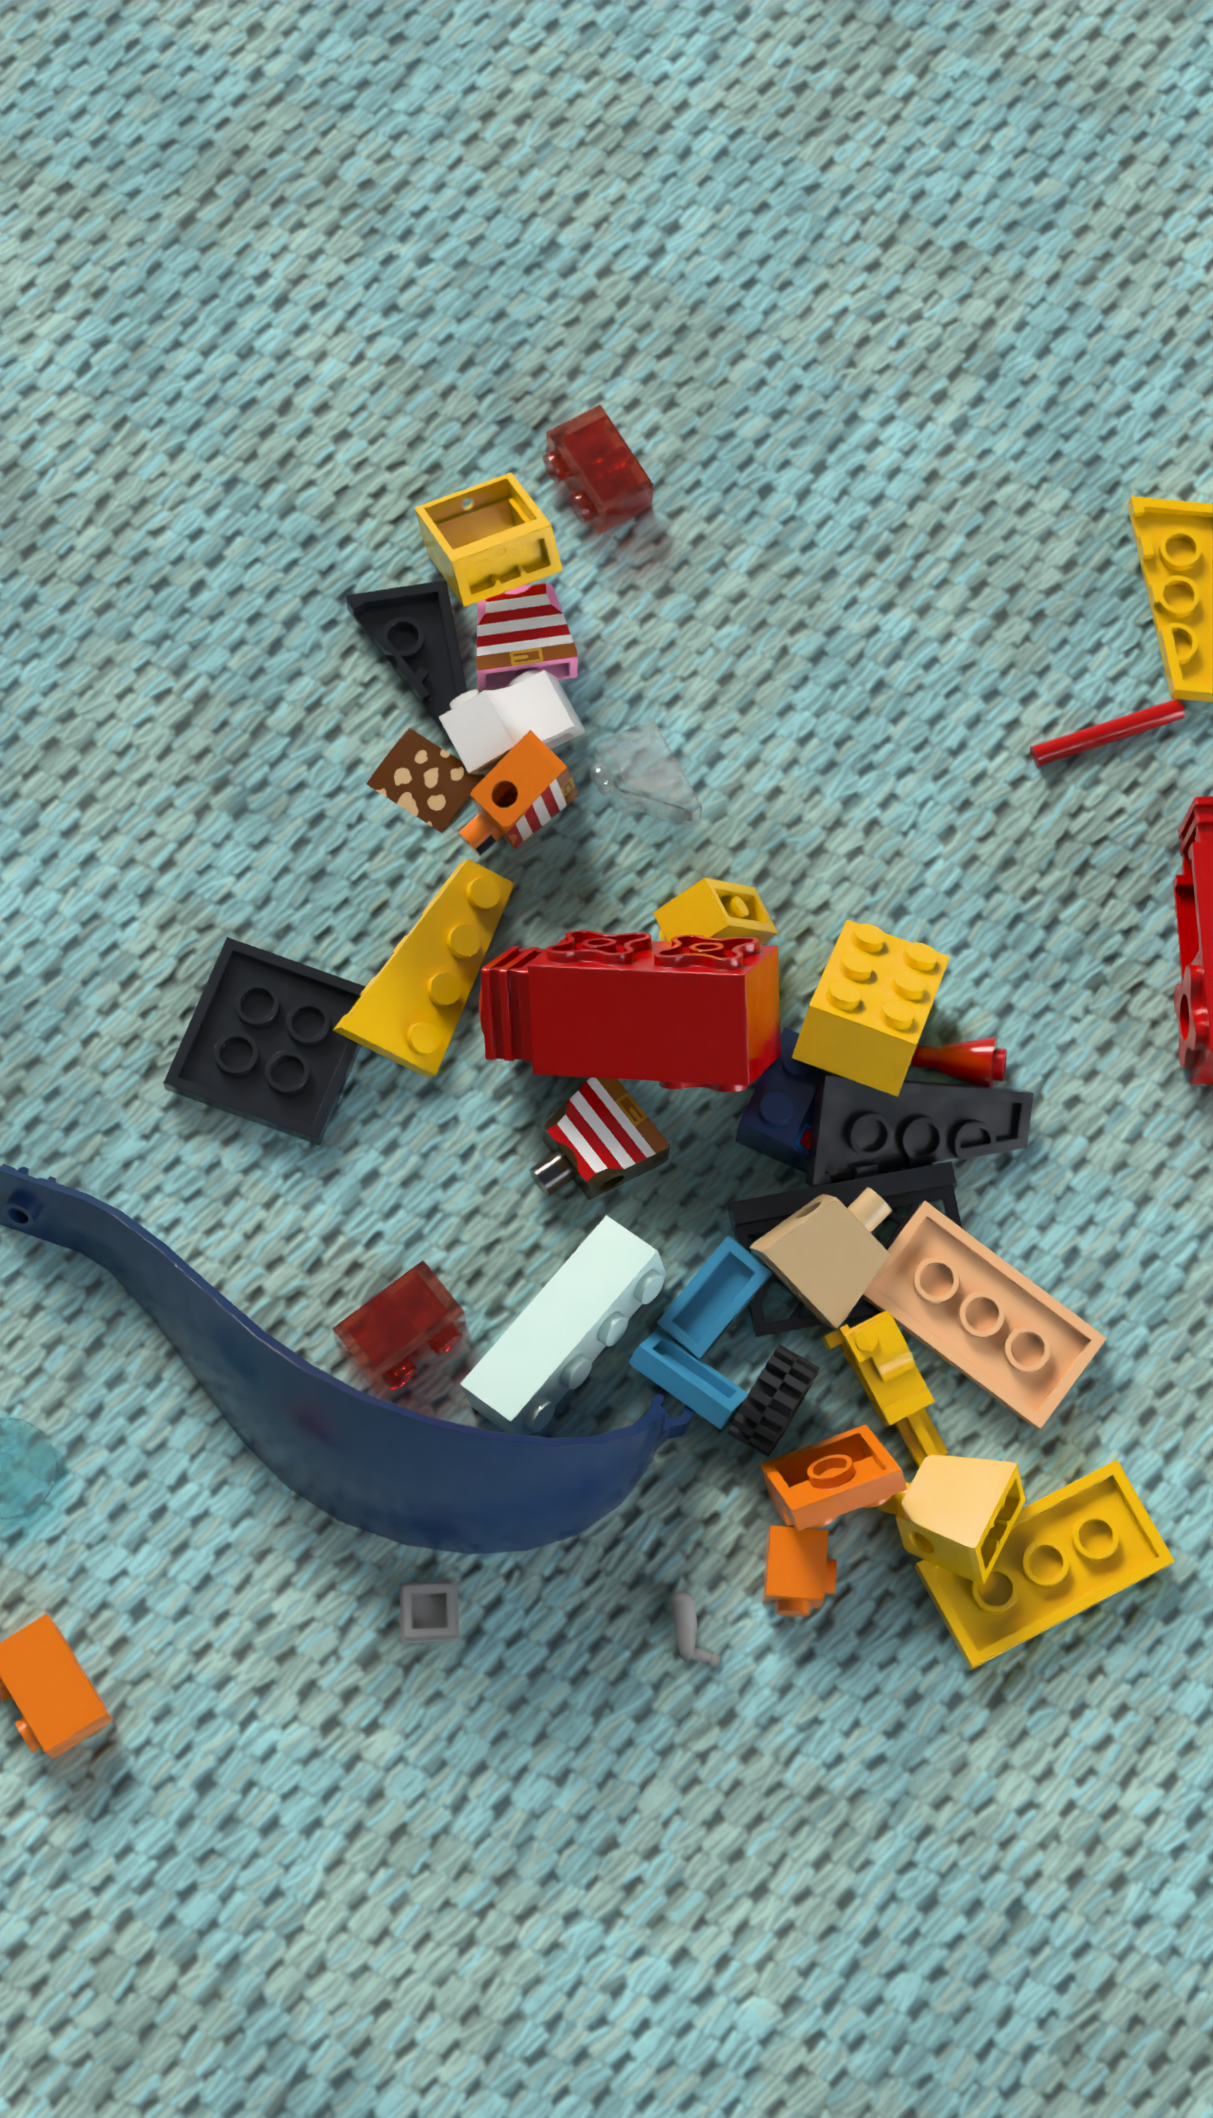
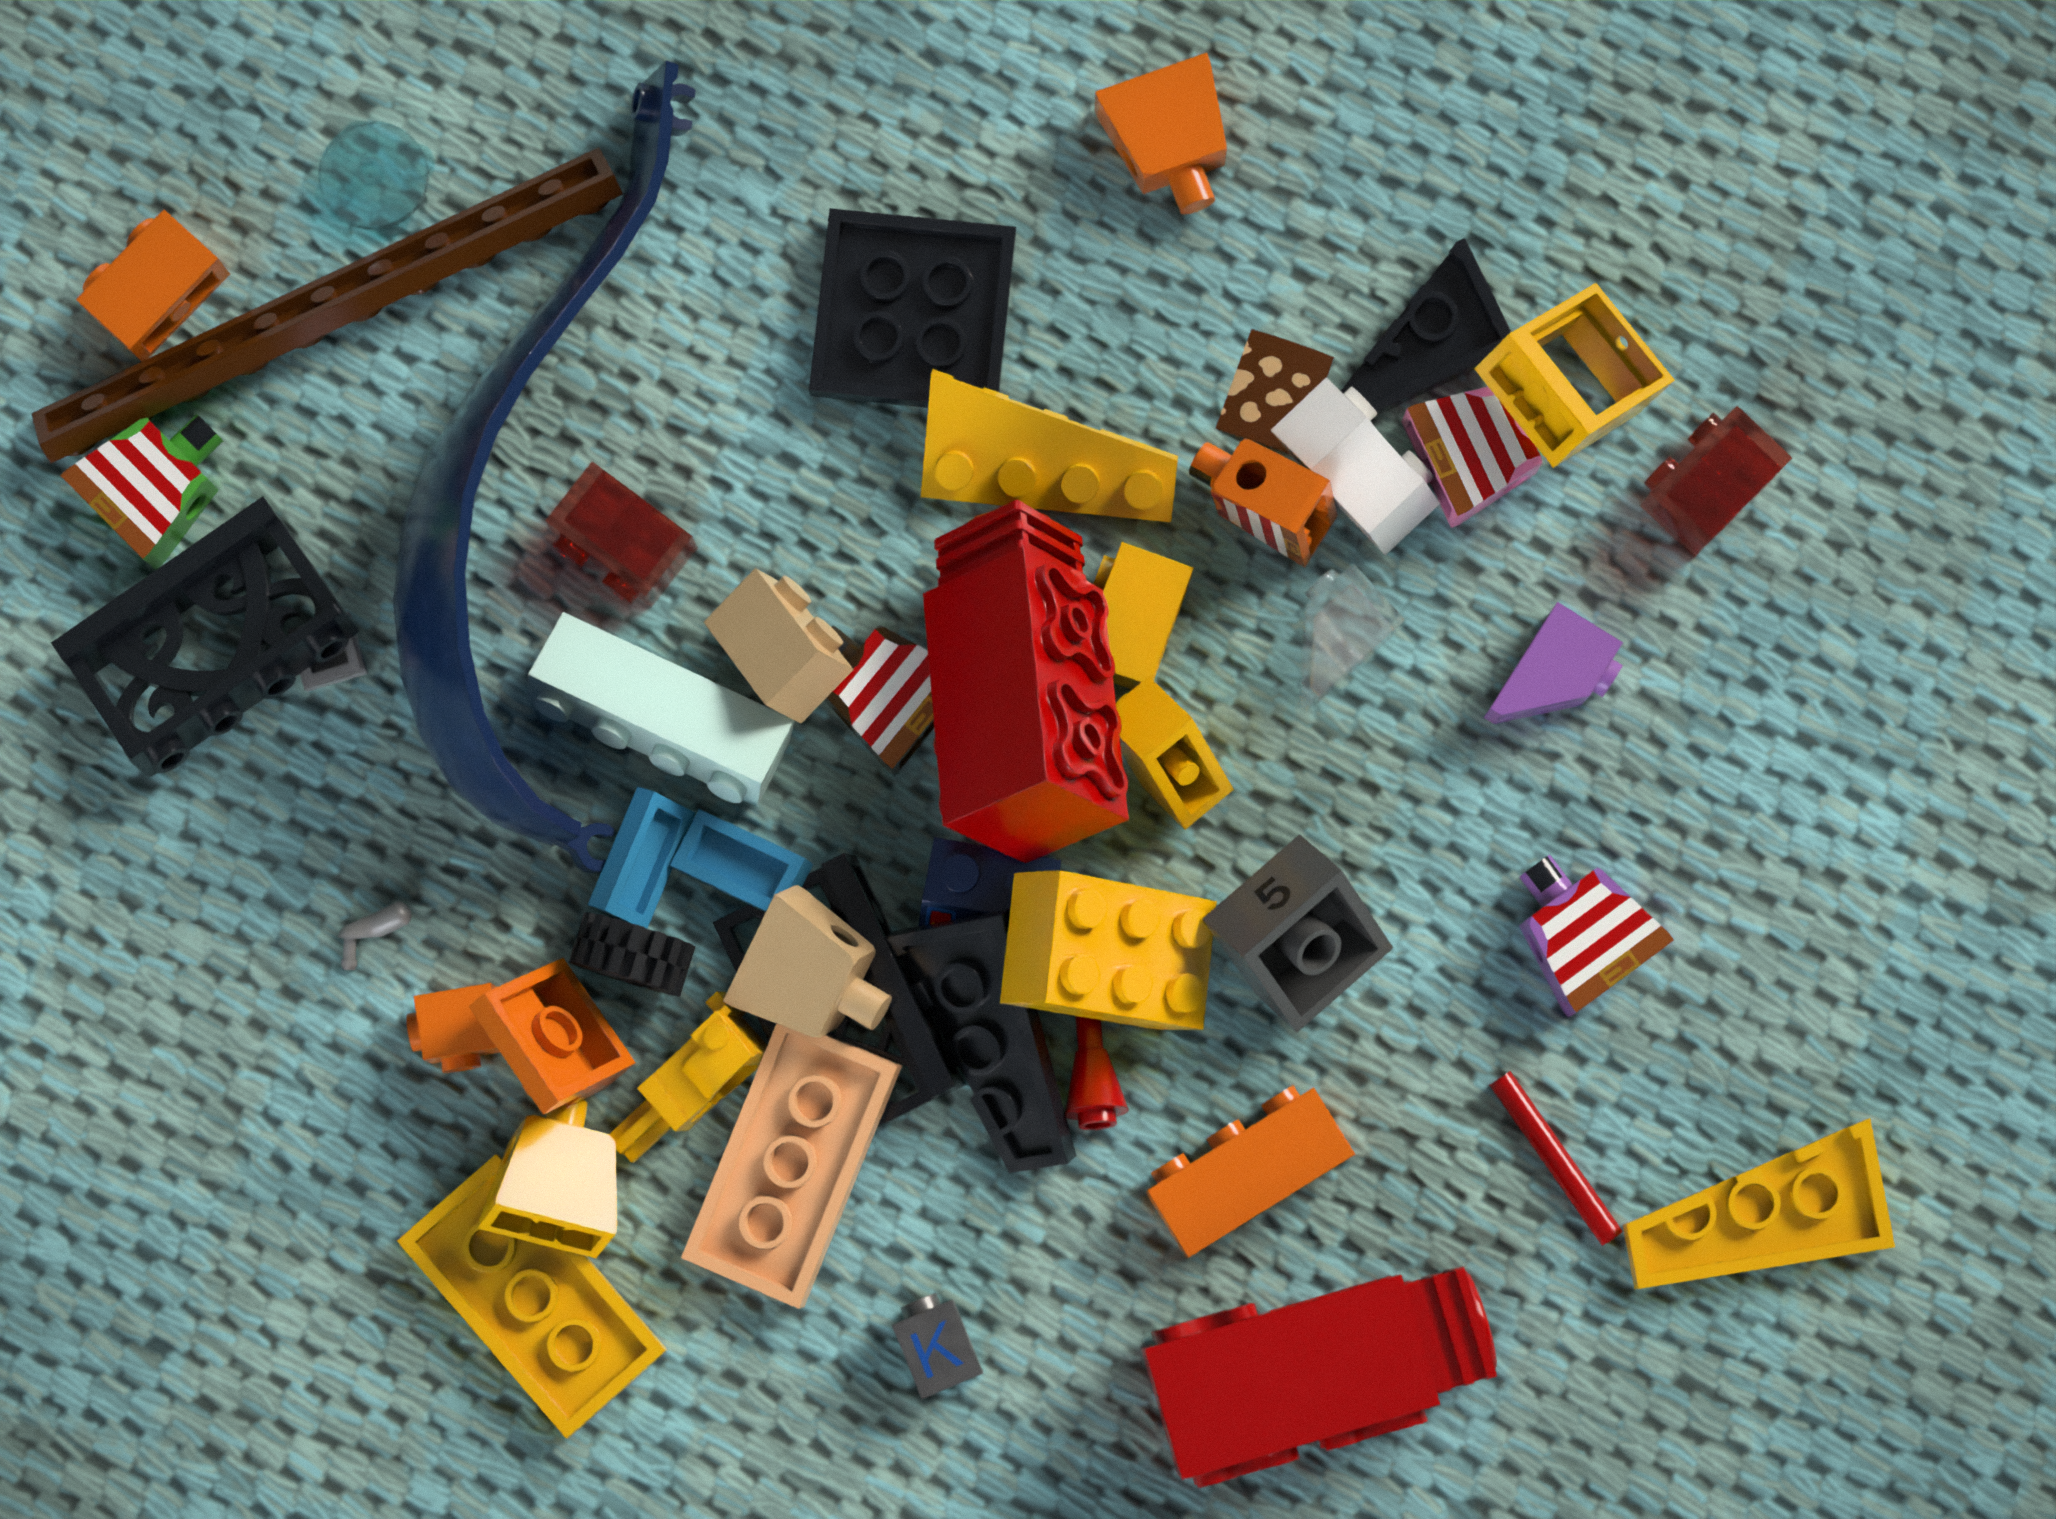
camera: 80 degrees right, 10 degrees up
(115, 1542) = (325, 305): none -> reddish brown plate
(181, 797) = (1168, 129): none -> orange torso
(233, 1733) = (148, 484): none -> torso
(320, 1672) = (156, 602): none -> black fence
(538, 1210) = (779, 644): none -> tan brick
(578, 905) = (1143, 605): none -> yellow brick
(716, 623) = (1558, 668): none -> medium lavender slope
(889, 861) = (1298, 933): none -> dark grey brick
(938, 658) = (1586, 933): none -> torso
(1069, 958) = (1248, 1169): none -> orange brick
(1160, 1237) = (936, 1345): none -> flat silver brick

